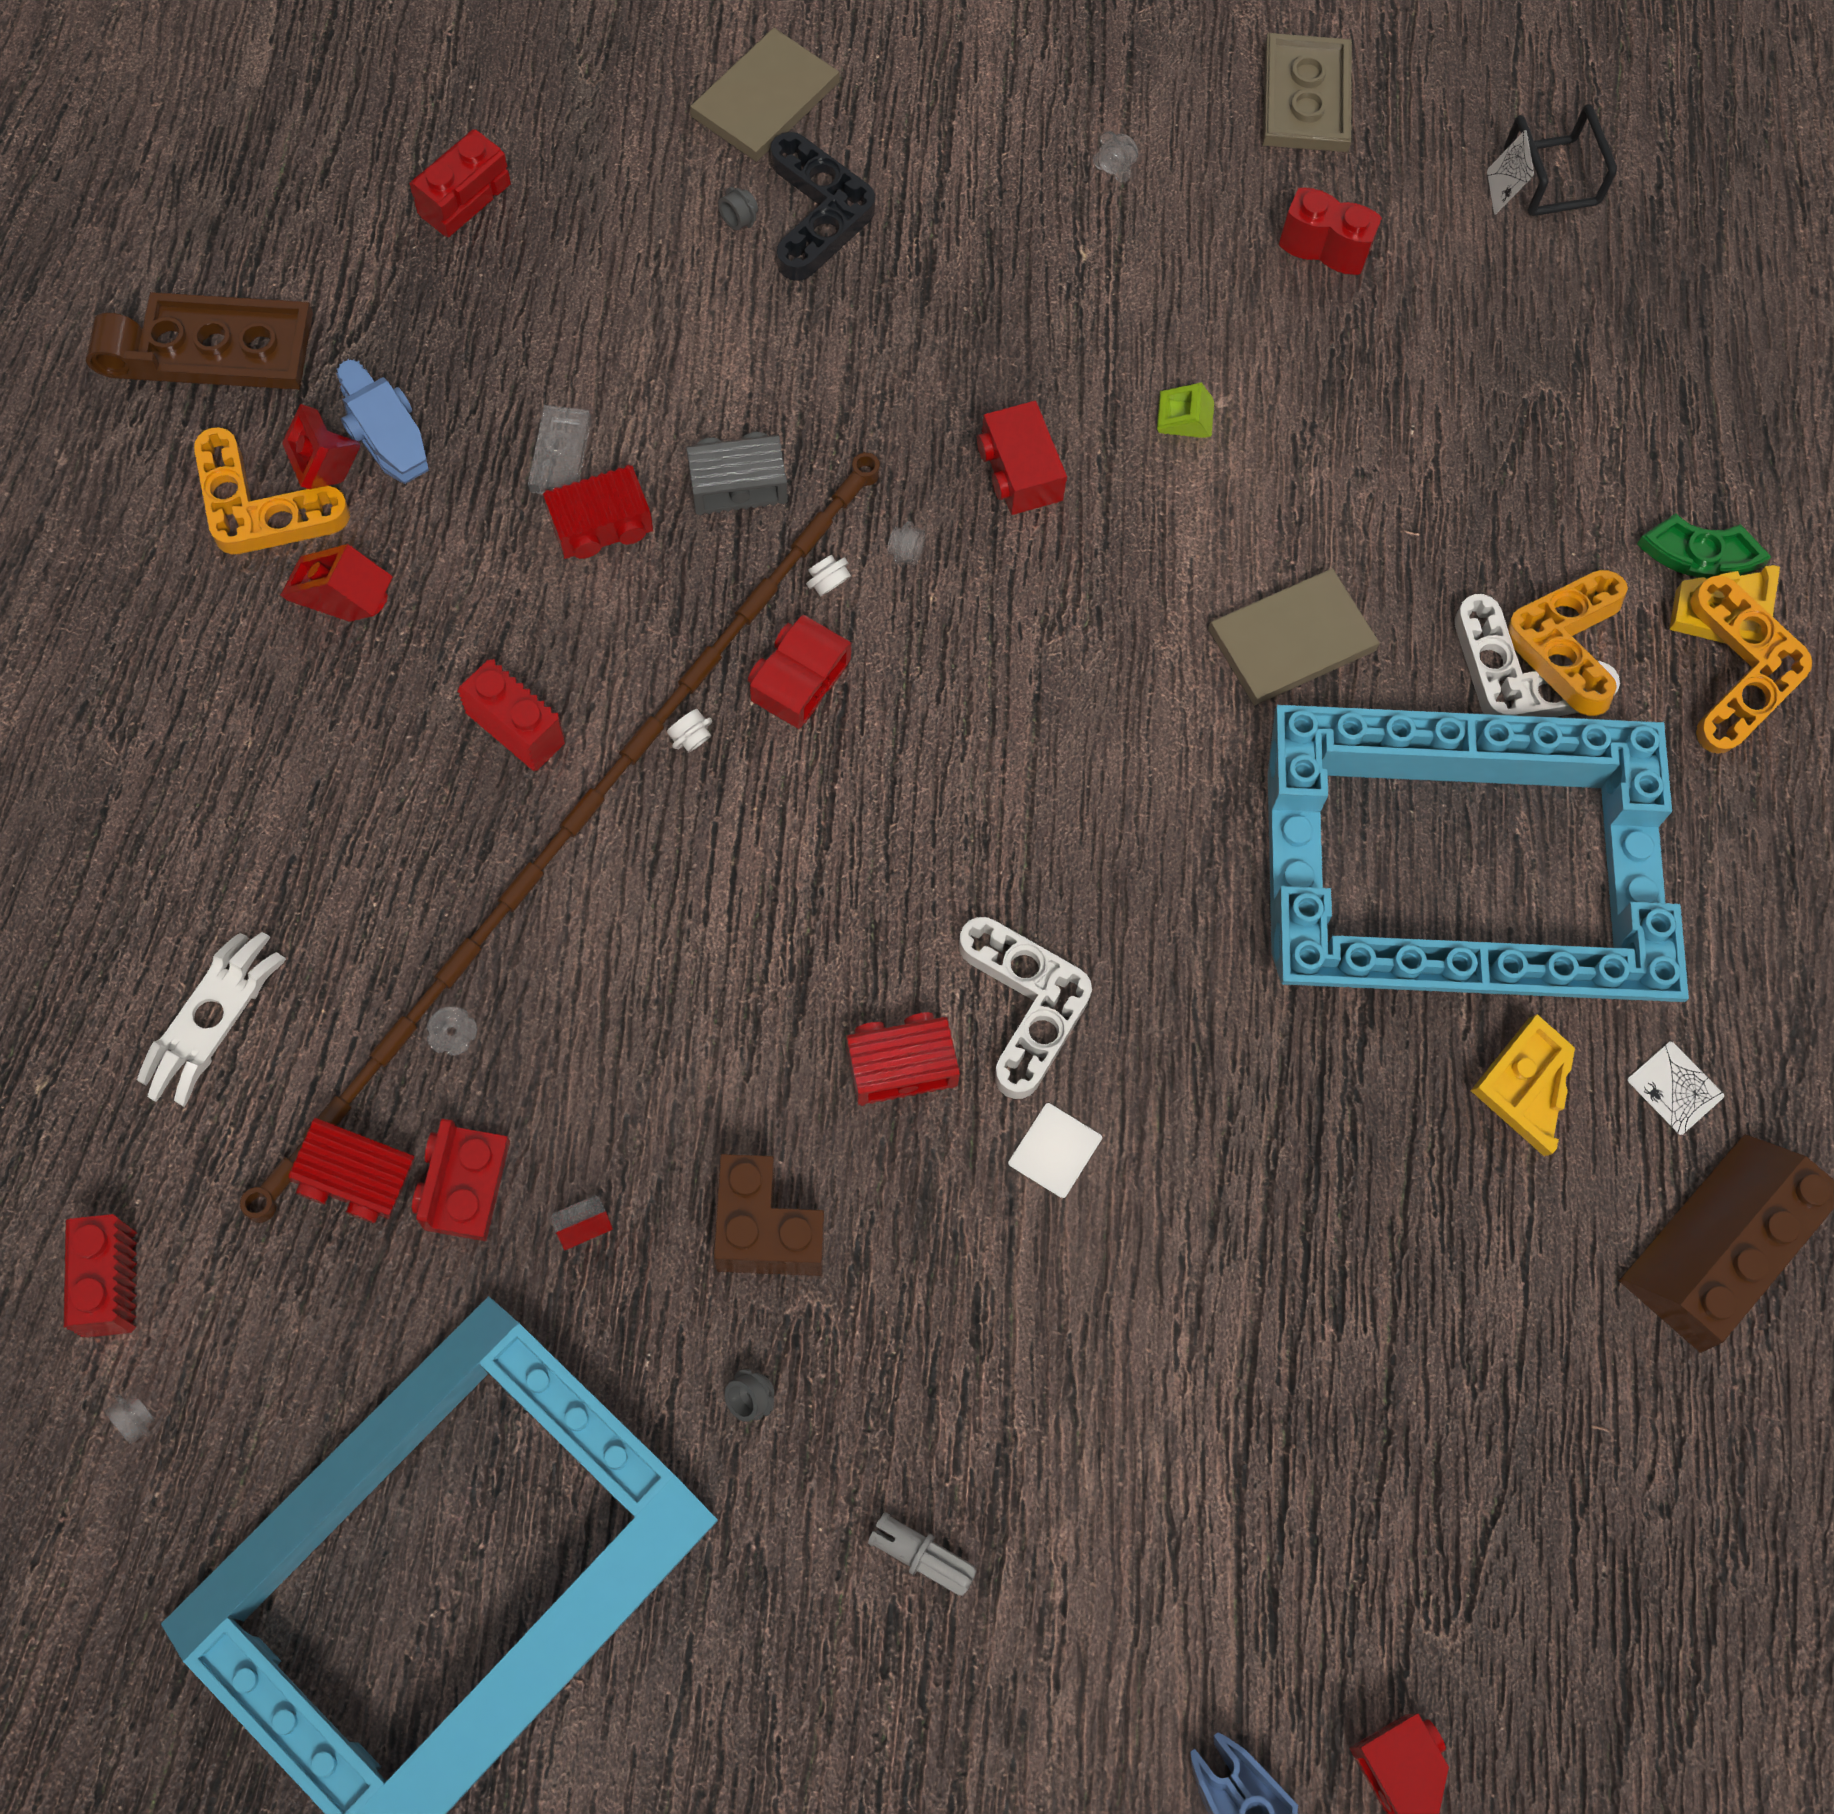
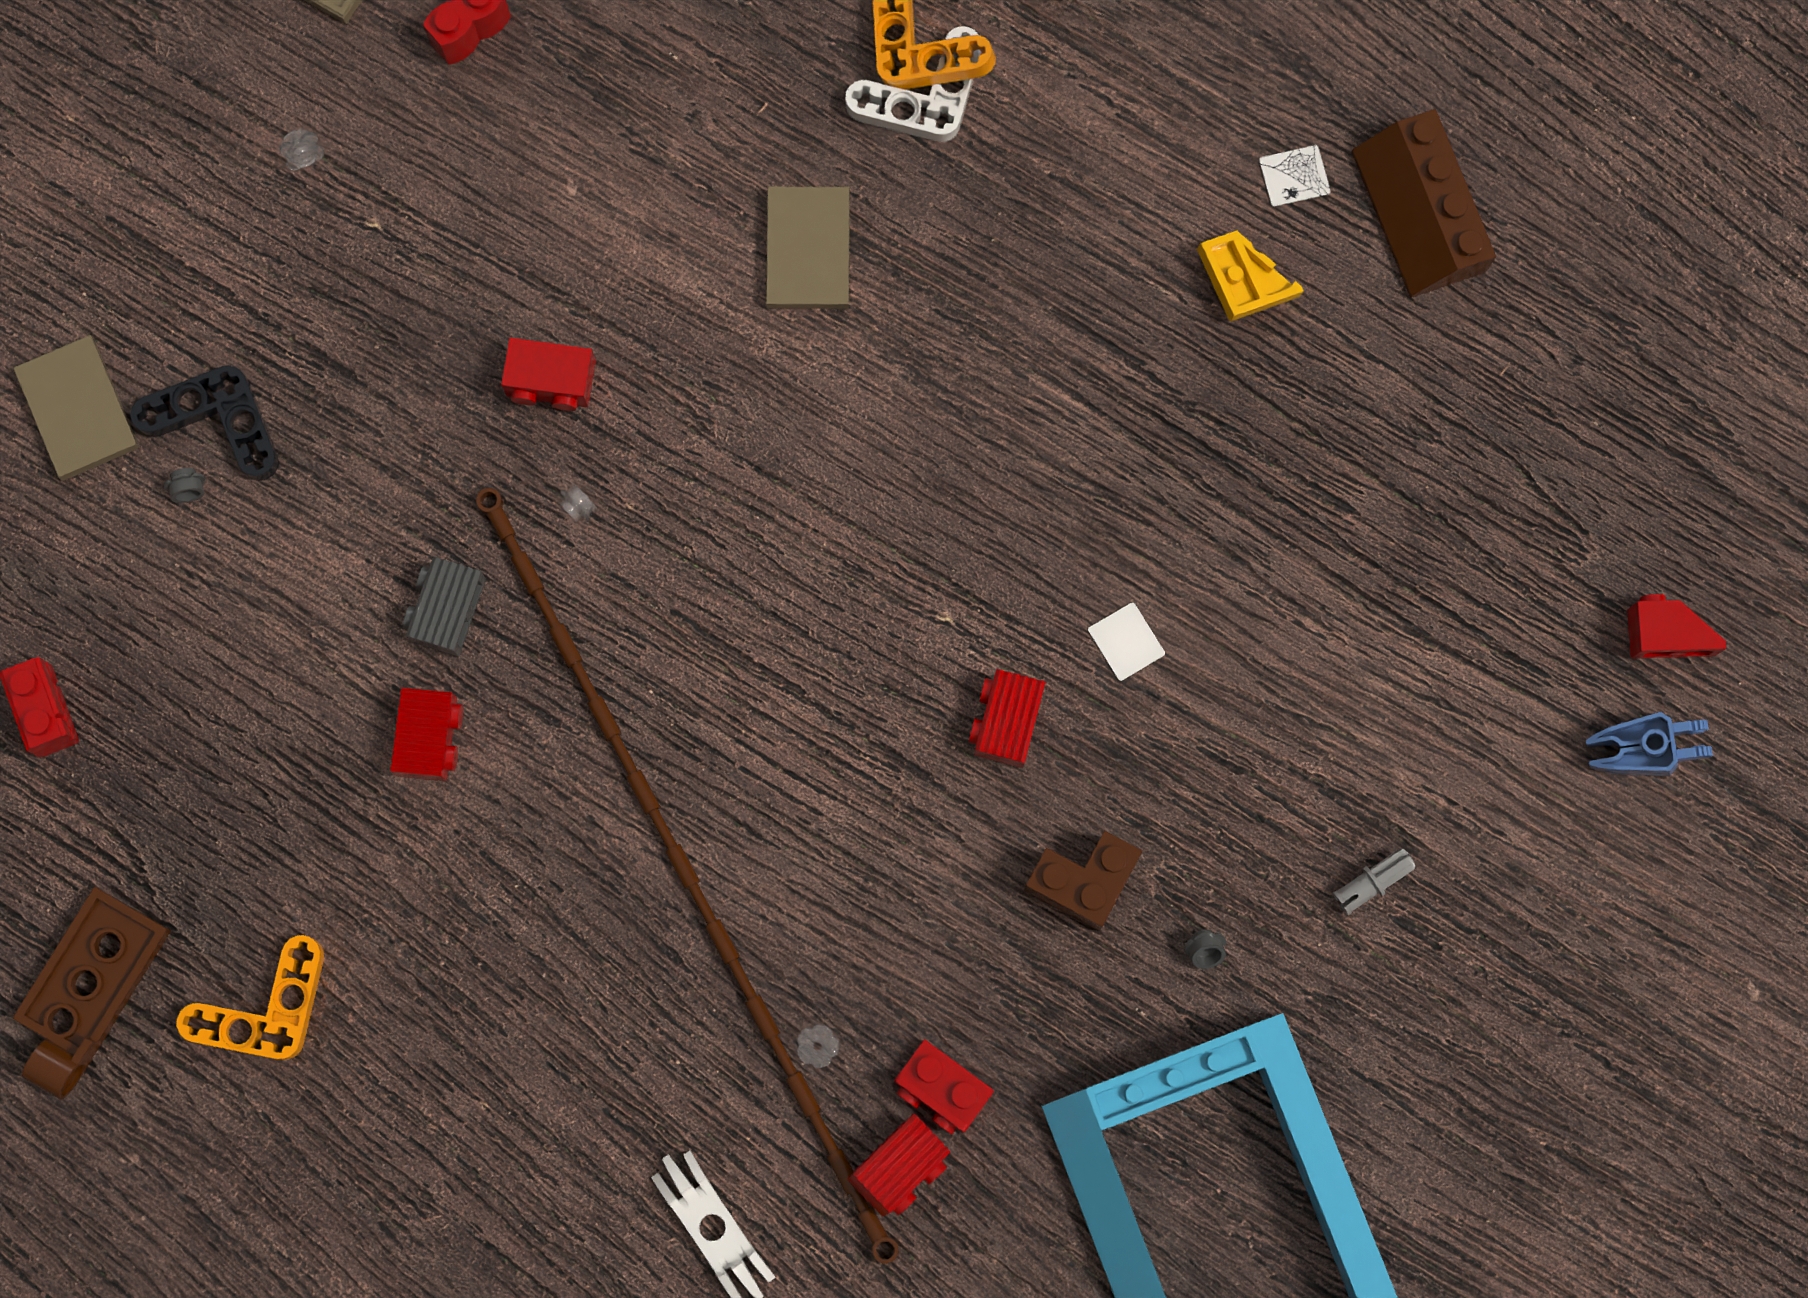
camera: 60 degrees left, 10 degrees up
(317, 454) = (246, 942): red slope -> none
(338, 584) = (382, 974): red slope -> none
(382, 422) = (249, 874): medium blue hinge -> none
(512, 714) = (576, 883): red brick -> none
(559, 448) = (345, 740): clear plate -> none
(581, 1222) = (1019, 1012): tile -> none
(690, 731) = (657, 750): white plate -> none
(799, 671) = (649, 640): red brick -> none
(828, 575) = (575, 578): white plate -> none
(1039, 988) = (1000, 588): white beam -> none
(1186, 411) = (568, 223): lime slope -> none
(1612, 755) = (1072, 74): medium azure slope -> none

